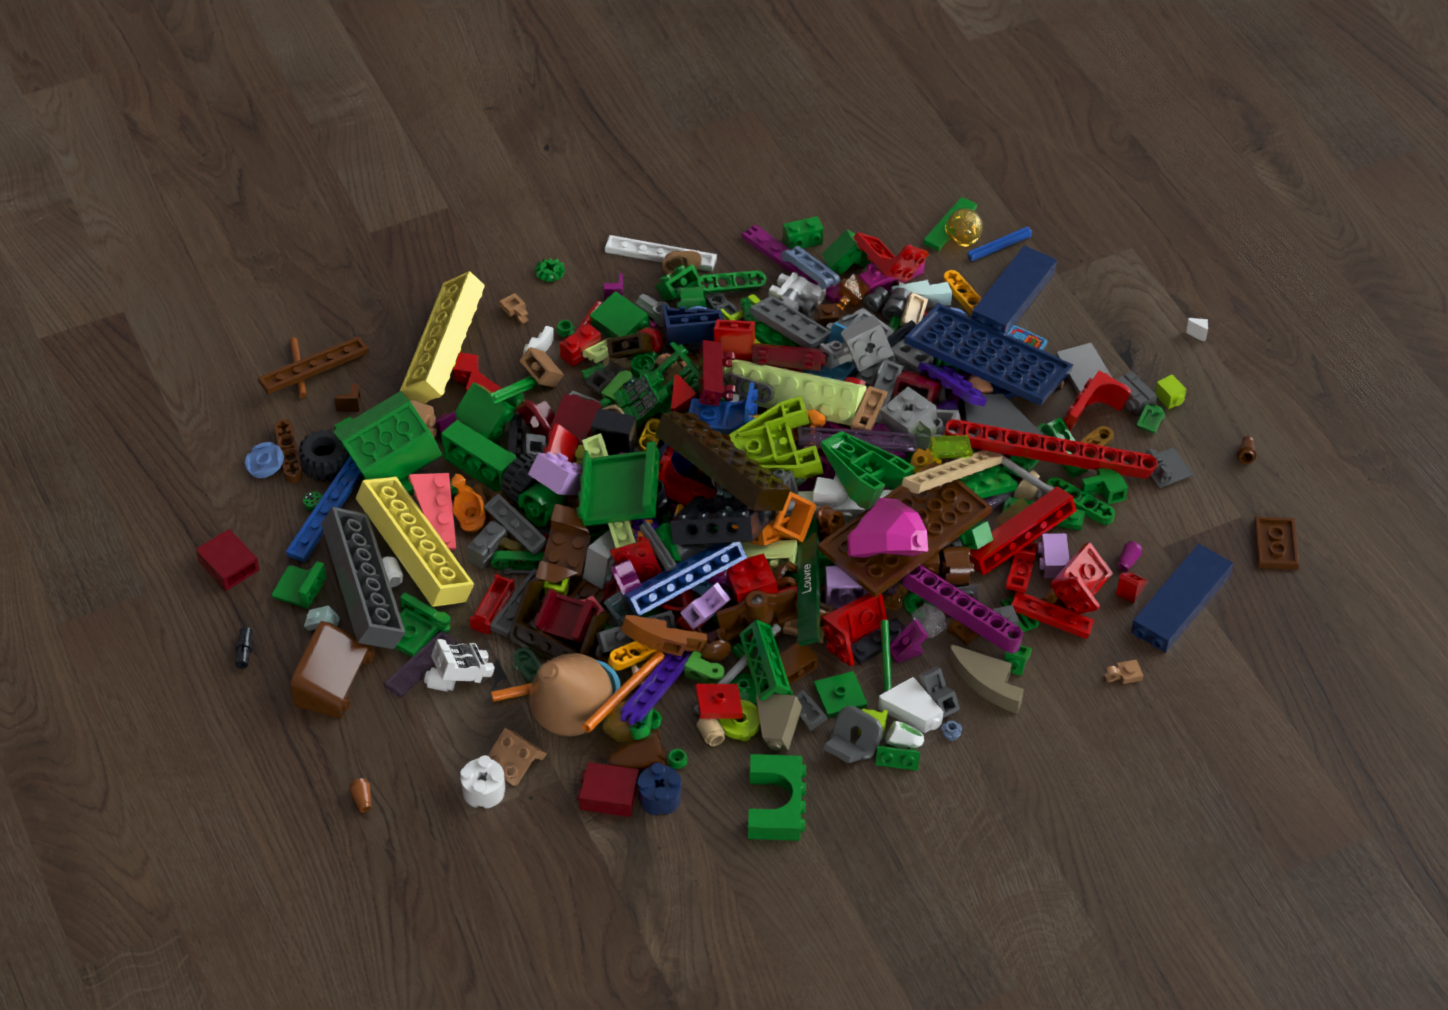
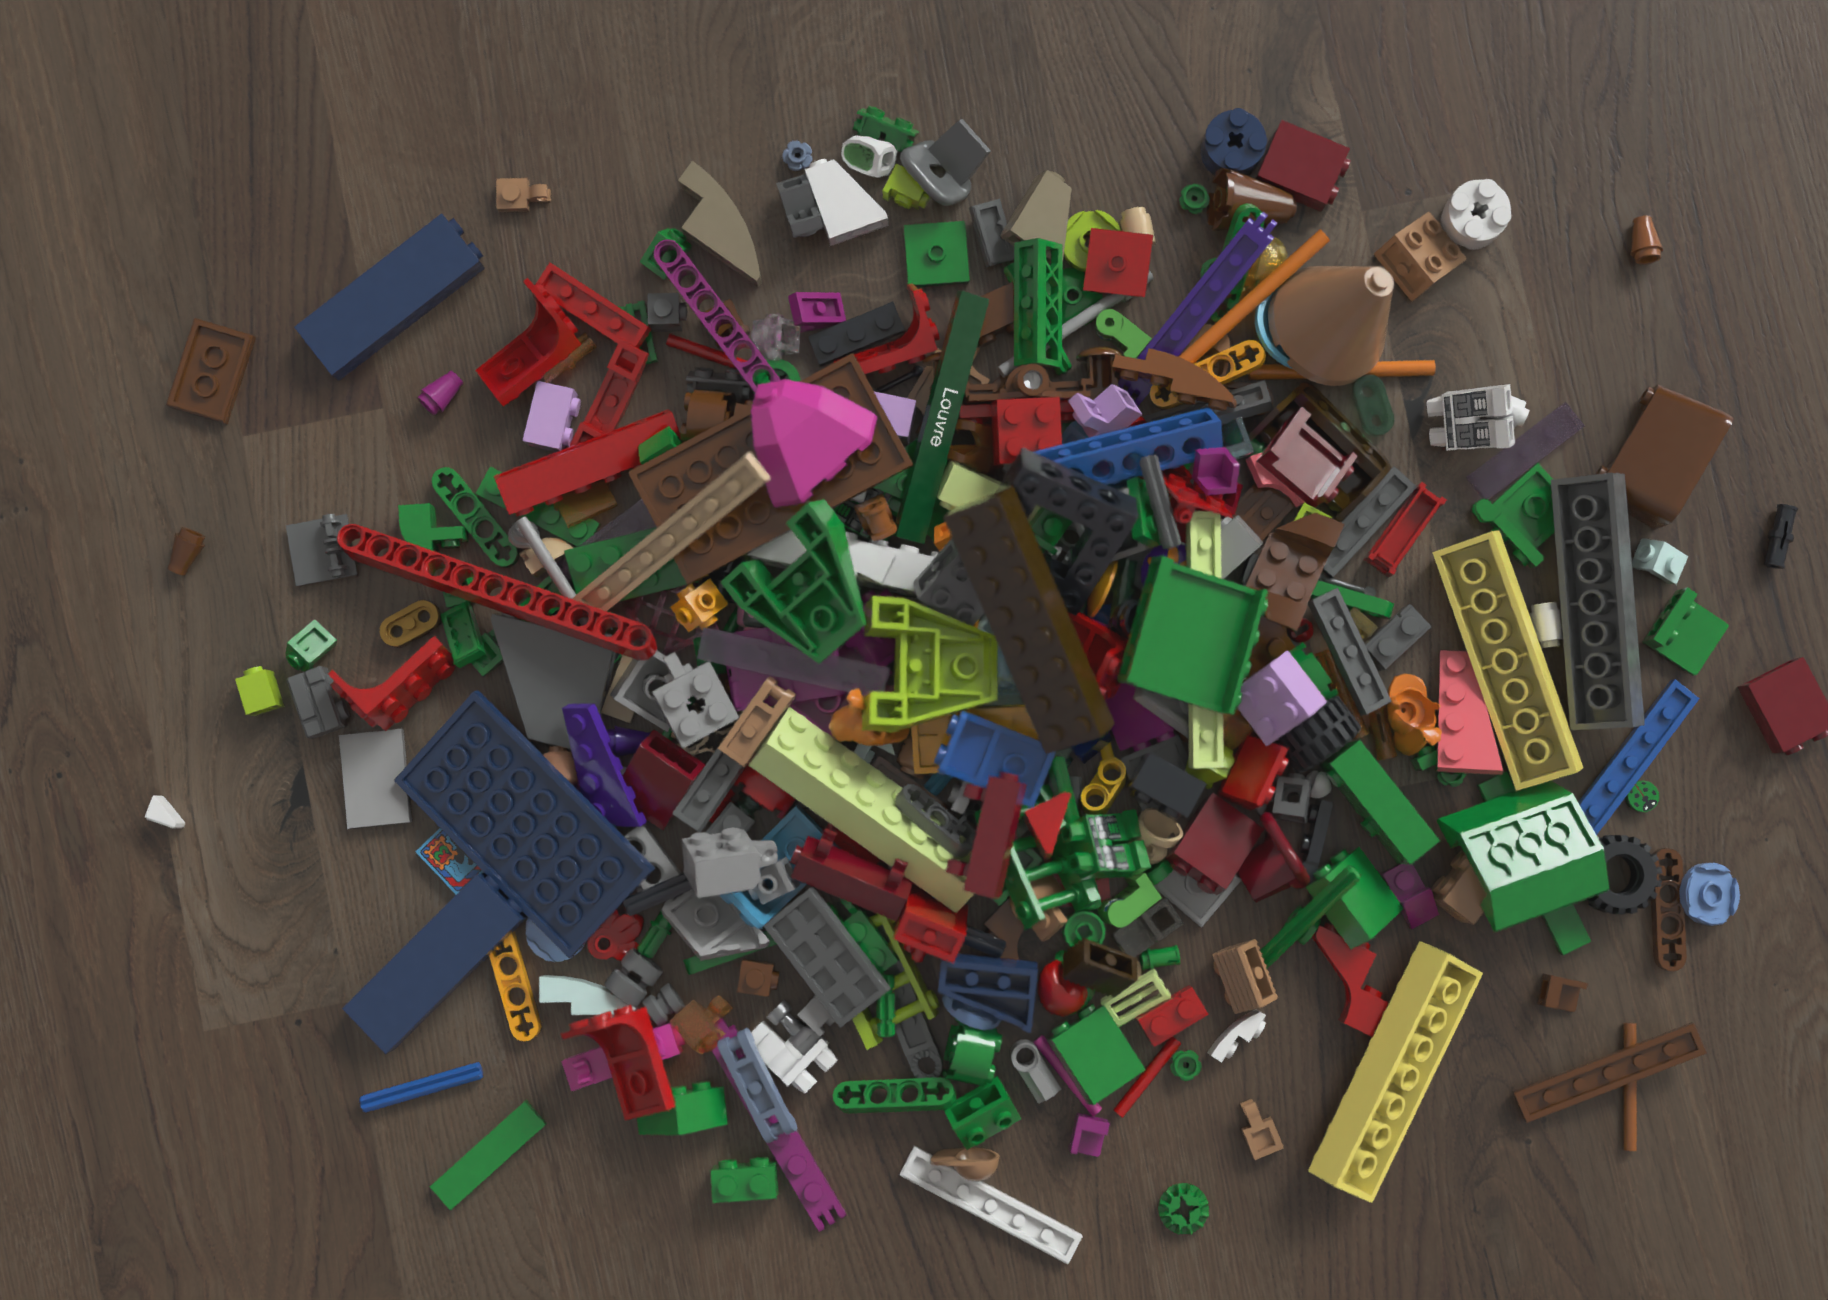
camera: 165 degrees left, 35 degrees up
(786, 821) = (1069, 56): green arch -> none
(799, 520) = (925, 528): orange tile -> none
(886, 663) = (856, 289): green bar -> none
(914, 308) = (615, 947): tan tile -> none
(950, 446) = (655, 600): clear neon green slope -> none
(964, 226) = (469, 1131): clear yellow cylinder -> none
(1130, 586) = (453, 340): red slope -> none

